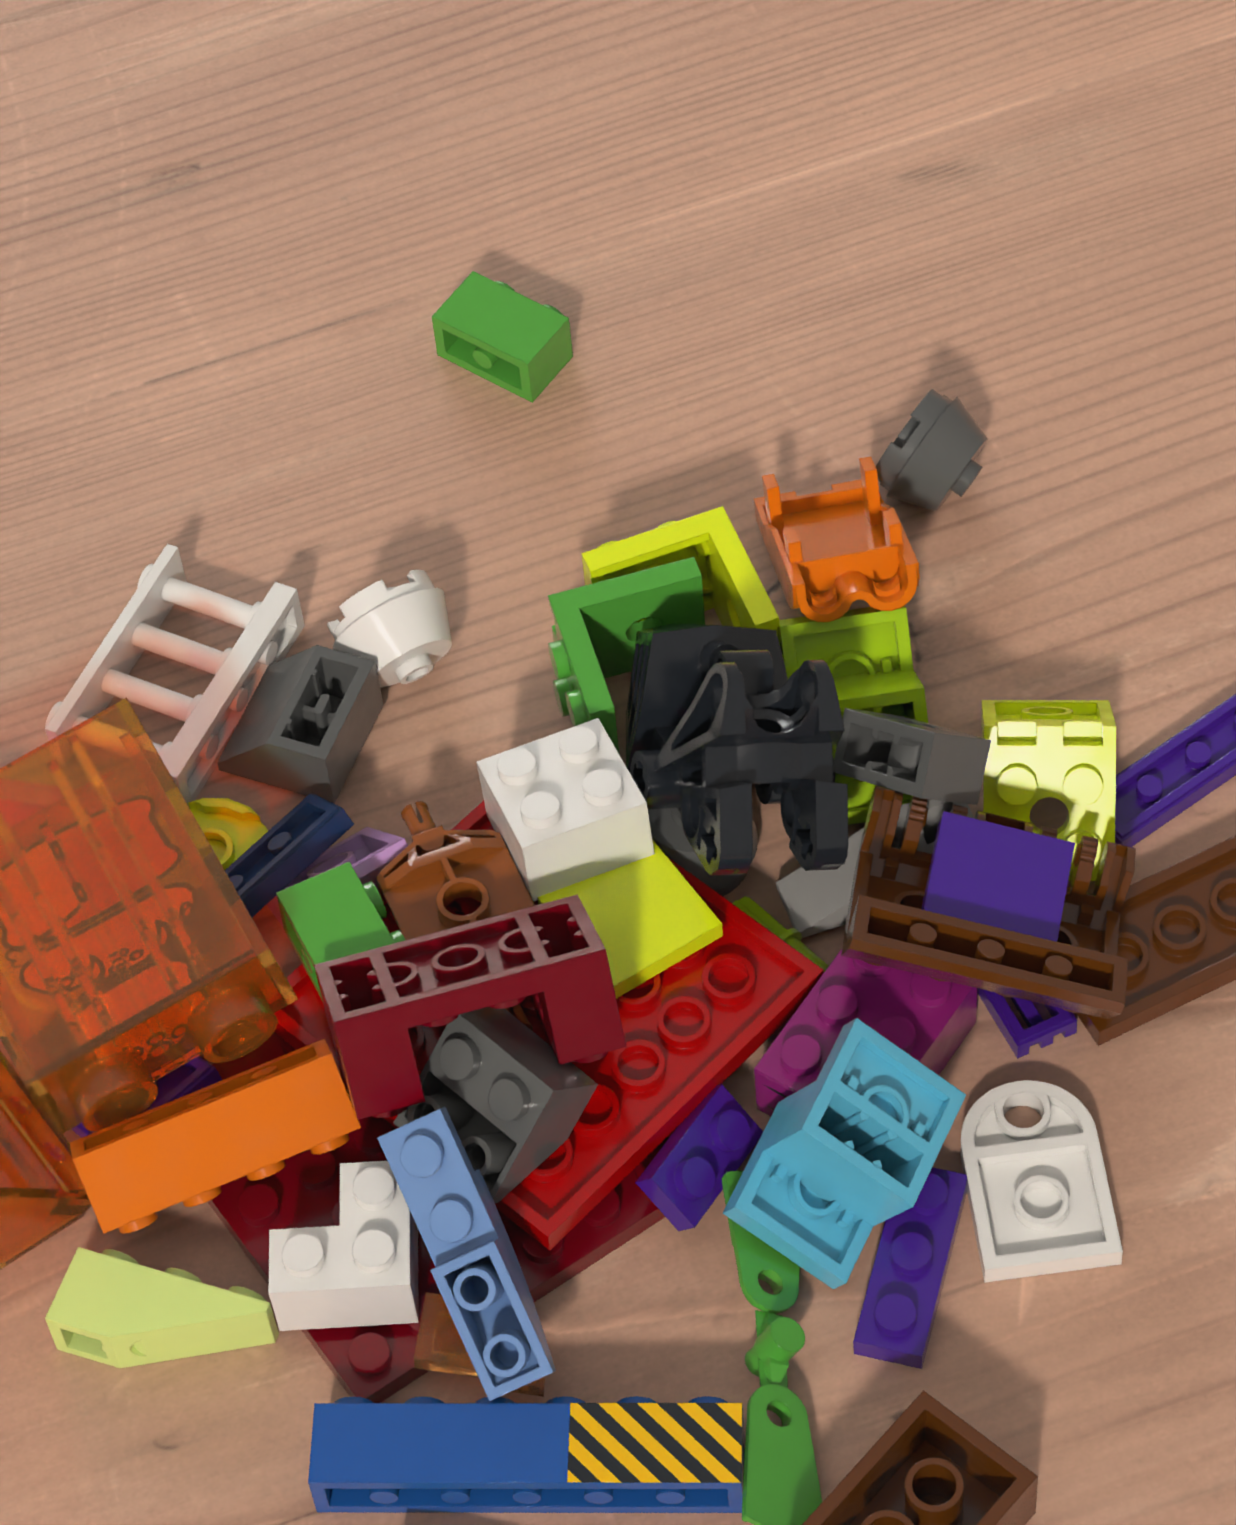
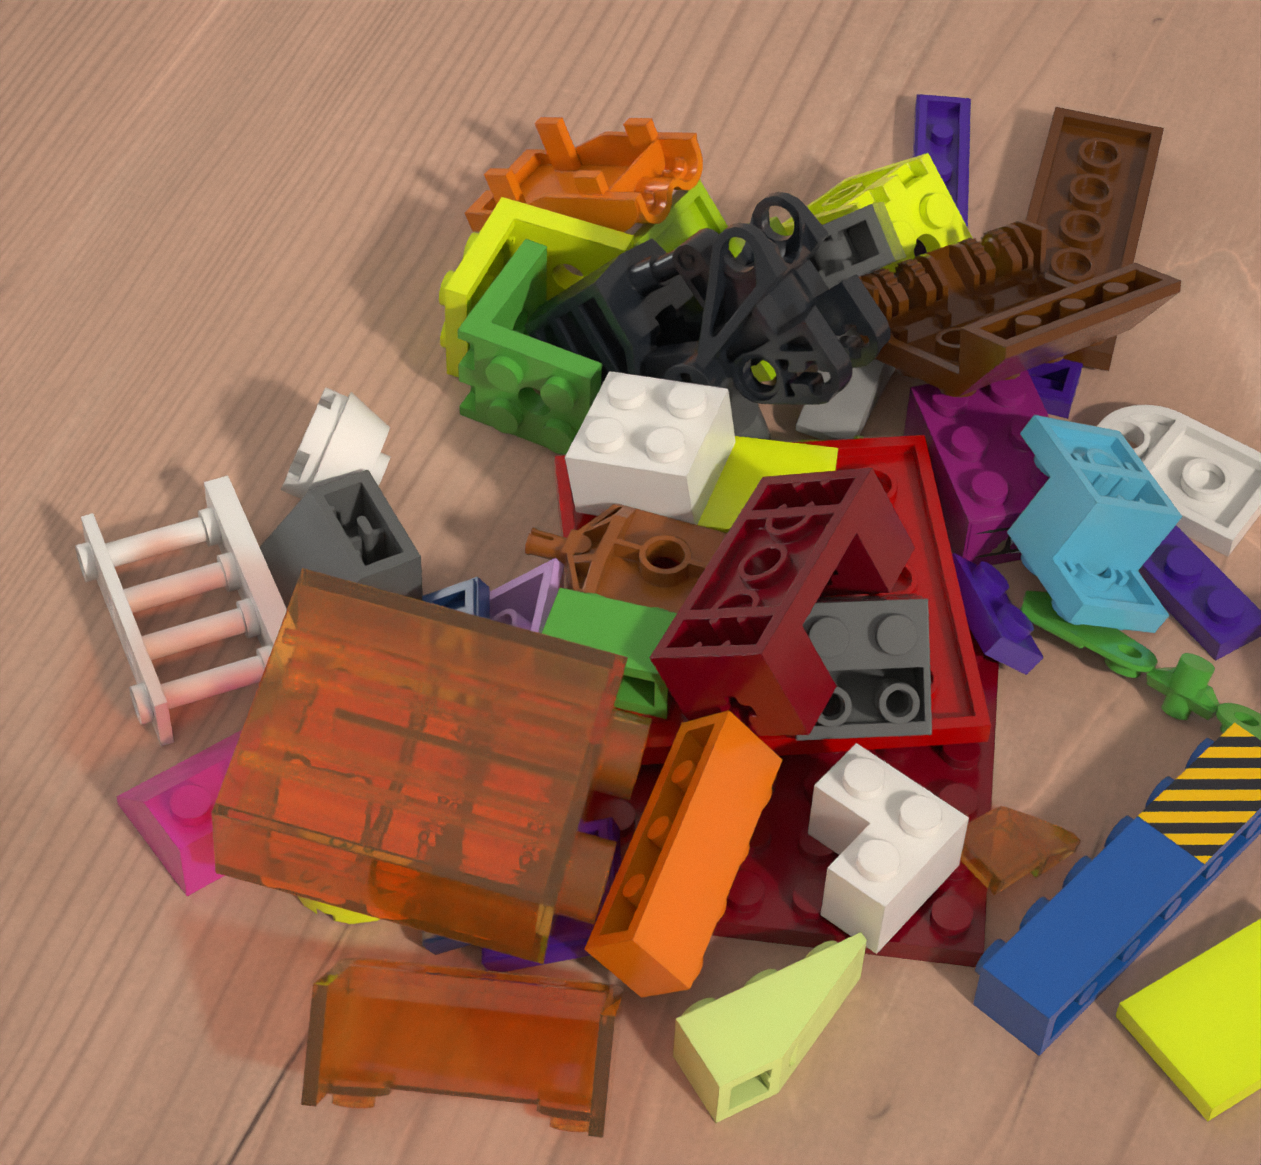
camera: 55 degrees left, 5 degrees down
(470, 1253) = (977, 771): medium blue slope -> none
(503, 336) = (144, 230): bright green brick -> none
(932, 454) = (558, 87): dark grey cone -> none
(998, 876) = (991, 273): dark purple tile -> none

